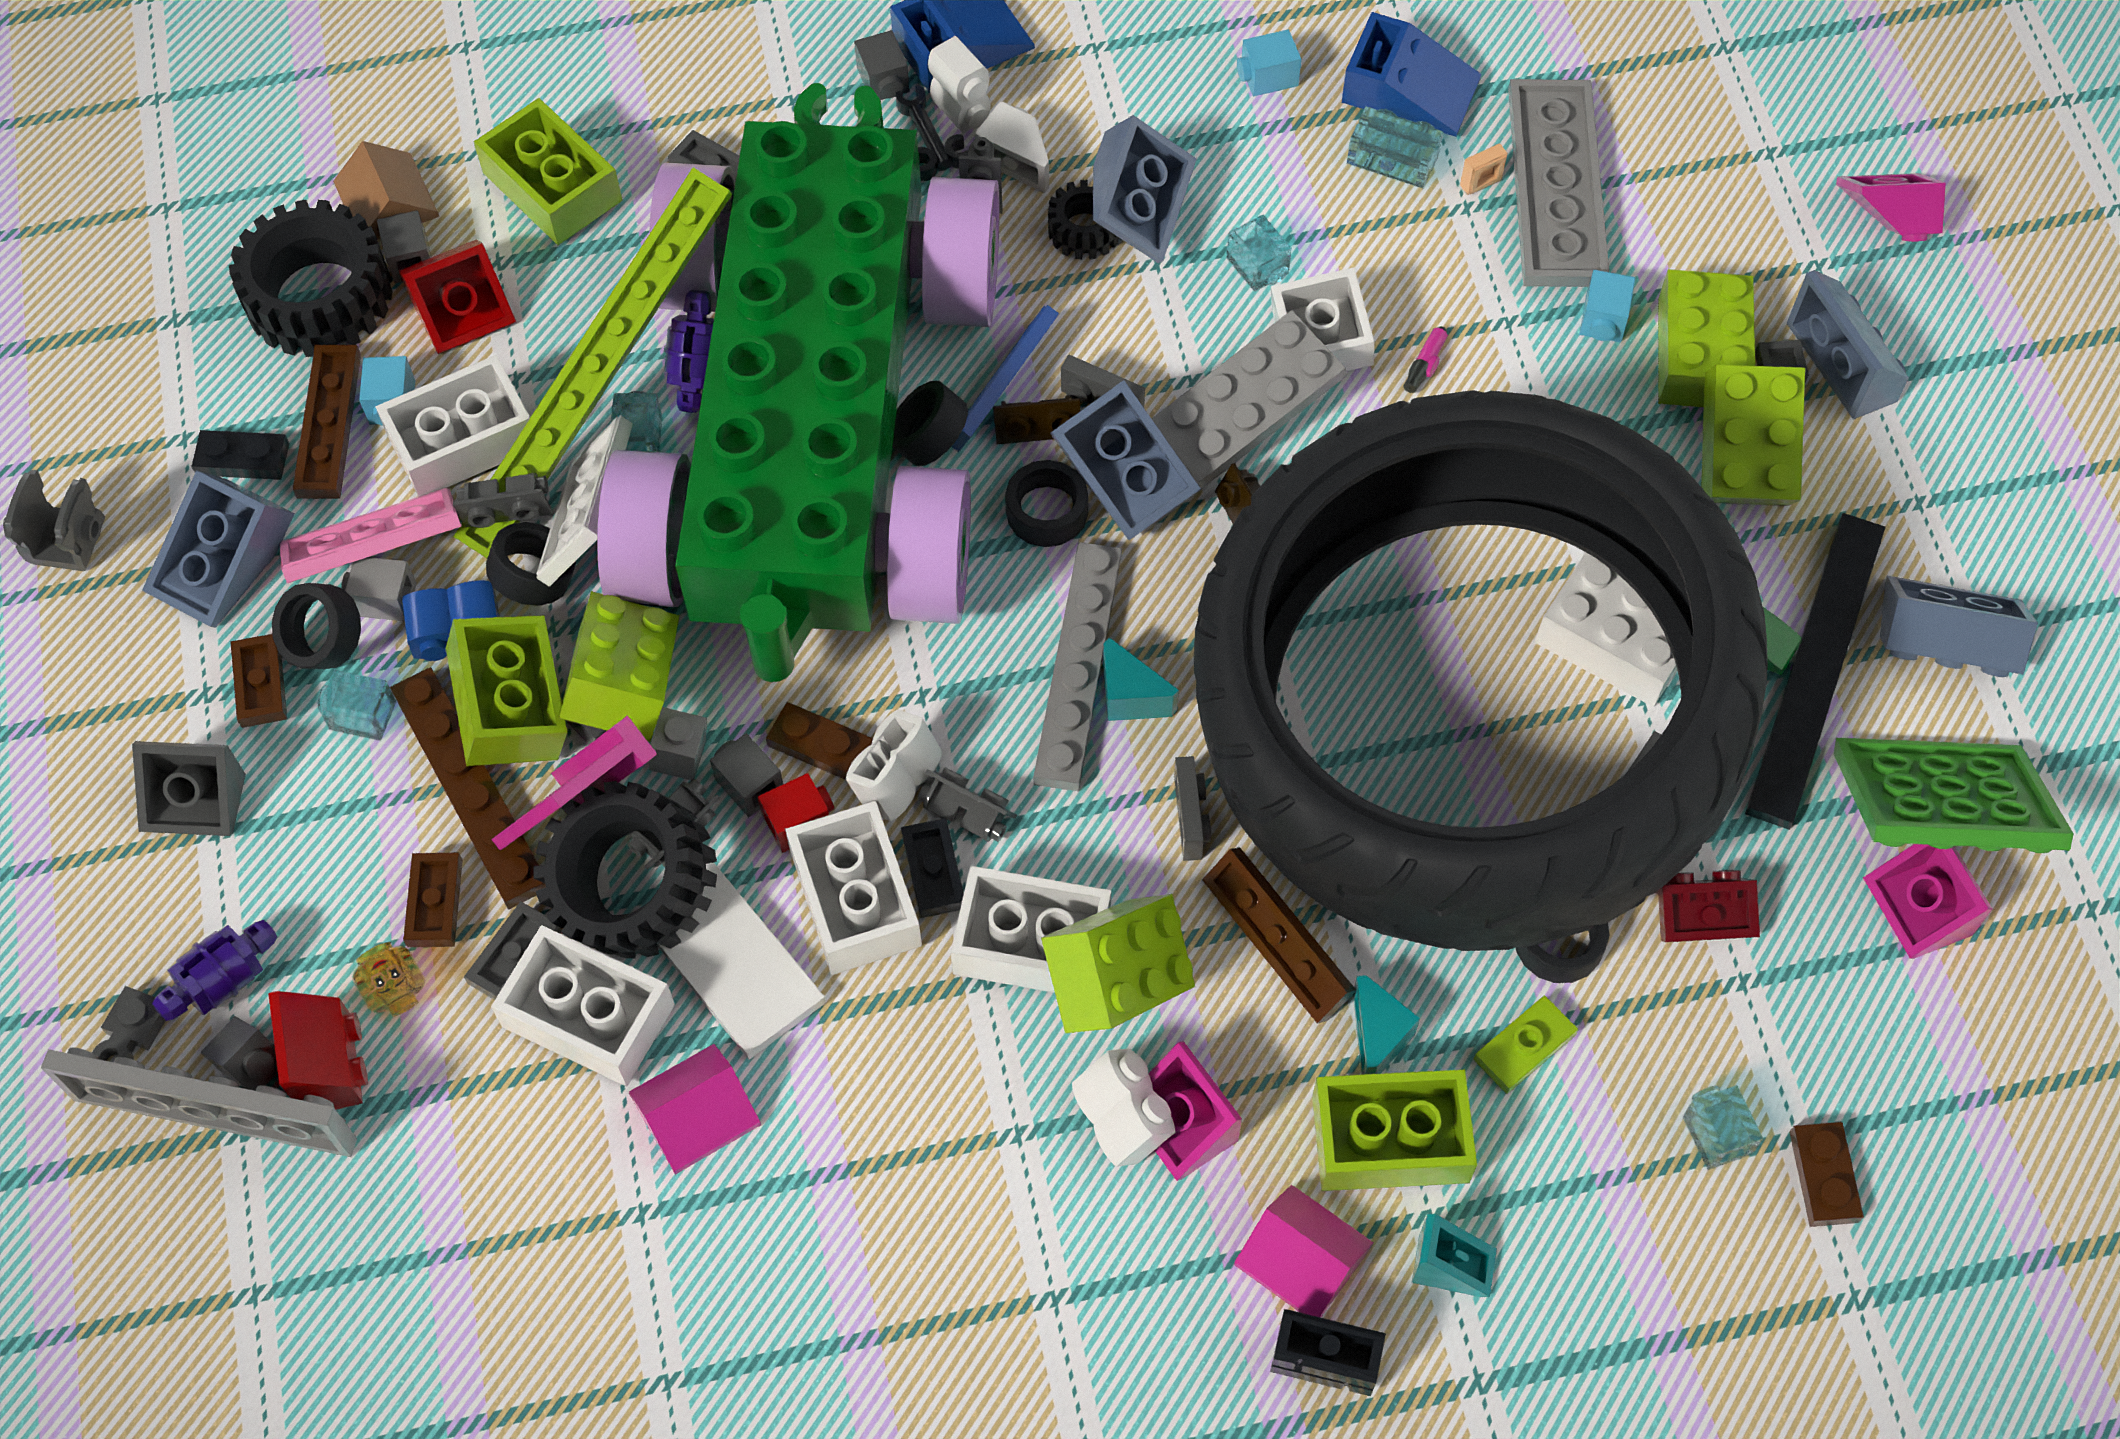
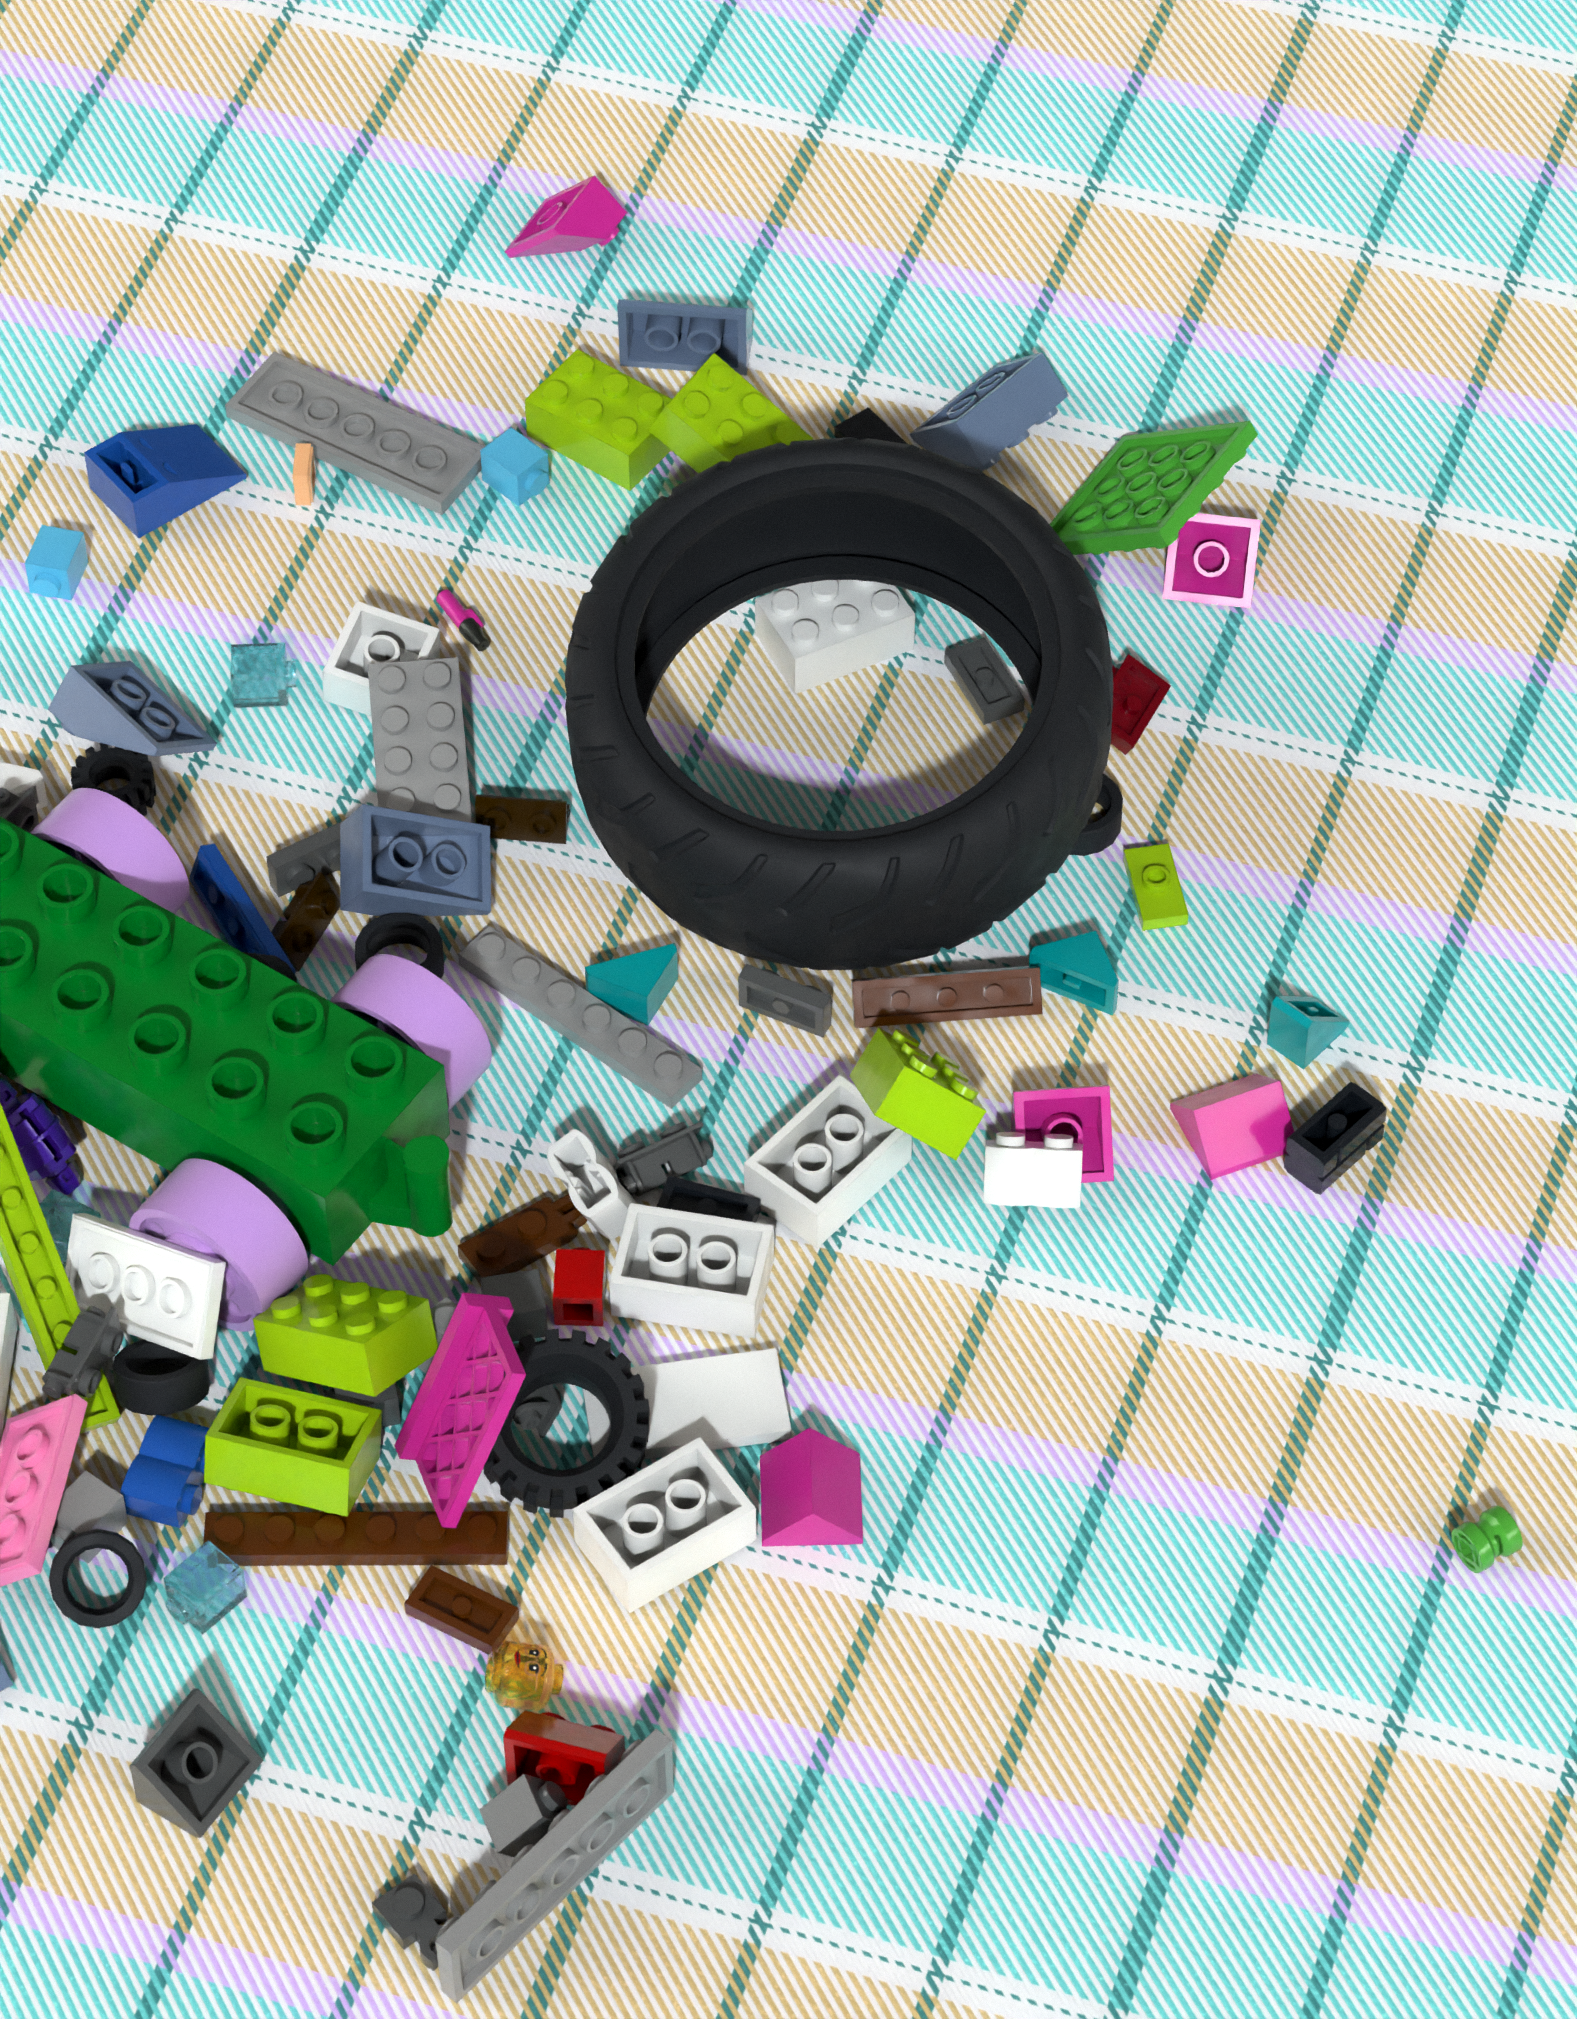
camera: 60 degrees left, 10 degrees down
(214, 970) = (415, 1811): dark purple piece -> none
(258, 681) = (110, 1663): reddish brown plate -> none
(506, 949) = (564, 1569): dark grey plate -> none
(1393, 1130) = (1177, 1001): lime brick -> none
(1394, 146) = (226, 522): clear light blue brick -> none
(1721, 1126) = (1311, 795): clear light blue brick -> none
(1781, 354) = (665, 378): dark grey plate -> none
(1826, 1174) = (1391, 757): reddish brown plate -> none

